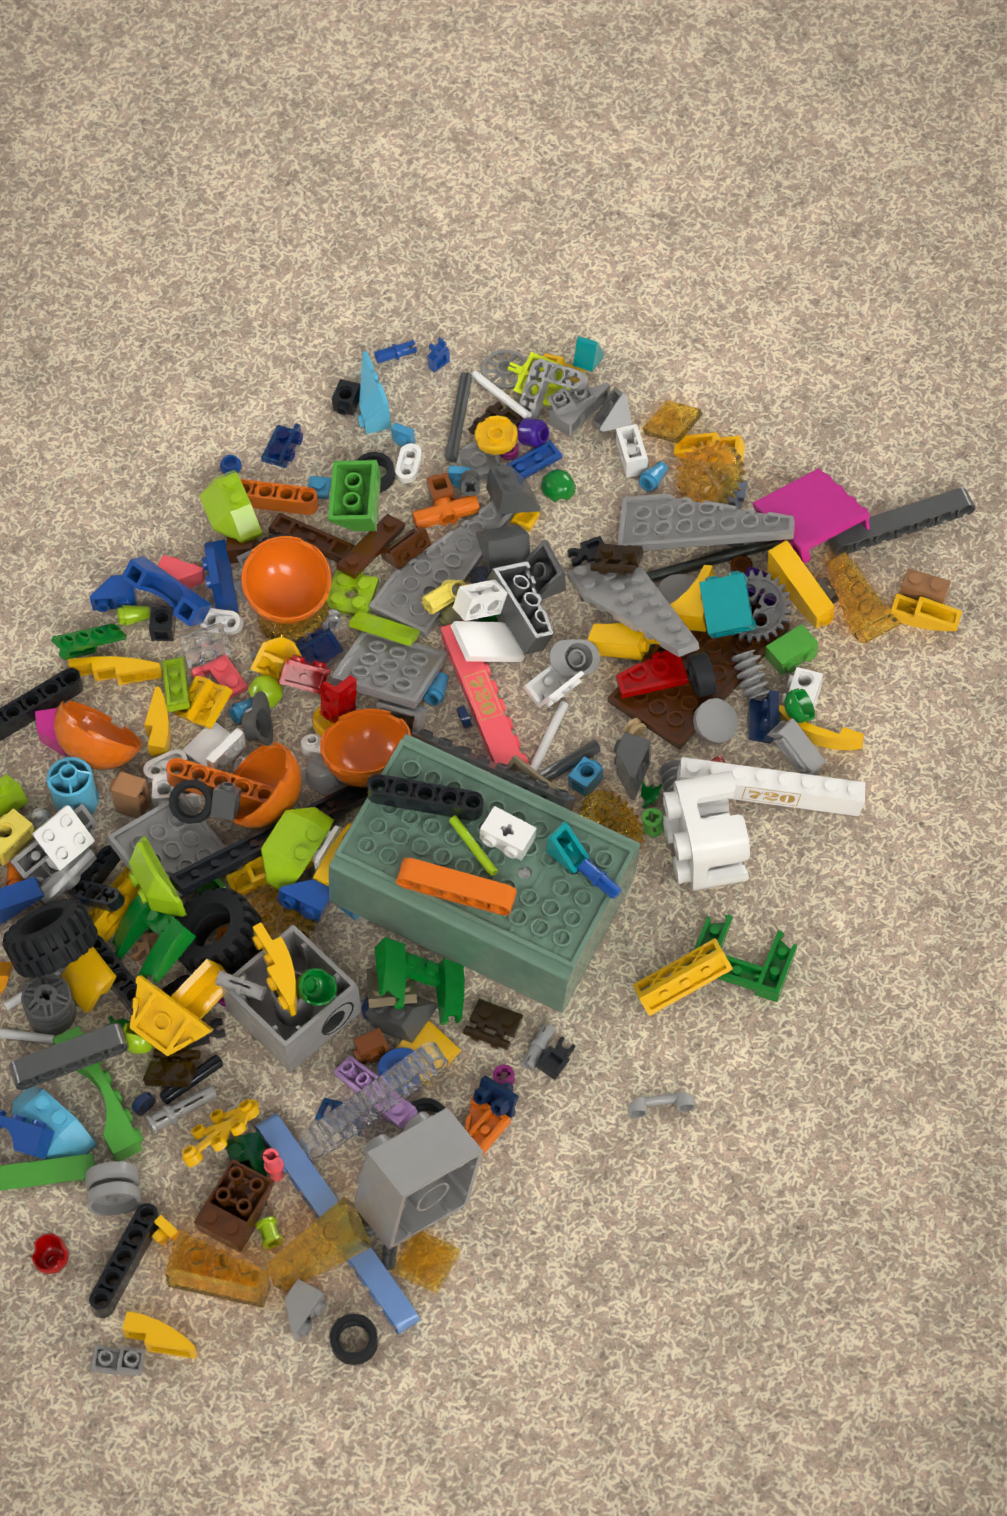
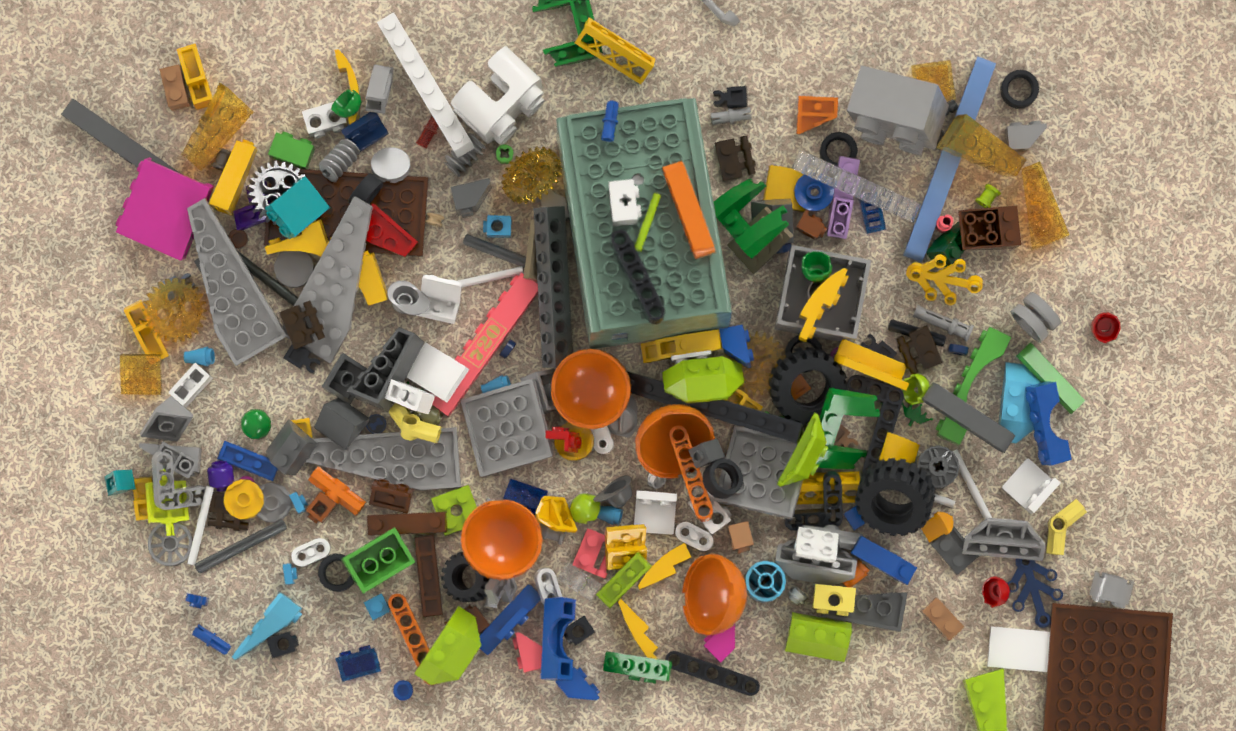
camera: 130 degrees left, 25 degrees up
(116, 1361) = (1139, 231): light grey slope -> none
(120, 1271) = (1082, 272): black beam -> none
(132, 614) = (586, 661): lime cone -> none
(157, 1336) = (1107, 215): yellow slope -> none
(164, 1020) = (899, 370): yellow wing -> none
(166, 1231) = (1034, 264): yellow tile -> none
(227, 980) = (850, 320): light grey pin -> none
(302, 674) = (554, 487): bracket -> none
(384, 628) = (473, 460): lime tile -> none
(468, 477) = (304, 484): dark grey bush -> none
(498, 1072) = (769, 118): magenta bush -> none
(498, 1096) = (787, 114): dark blue hips -> none
(566, 848) = (605, 156): teal slope -> none
(649, 794) = (482, 171): green piece -> none

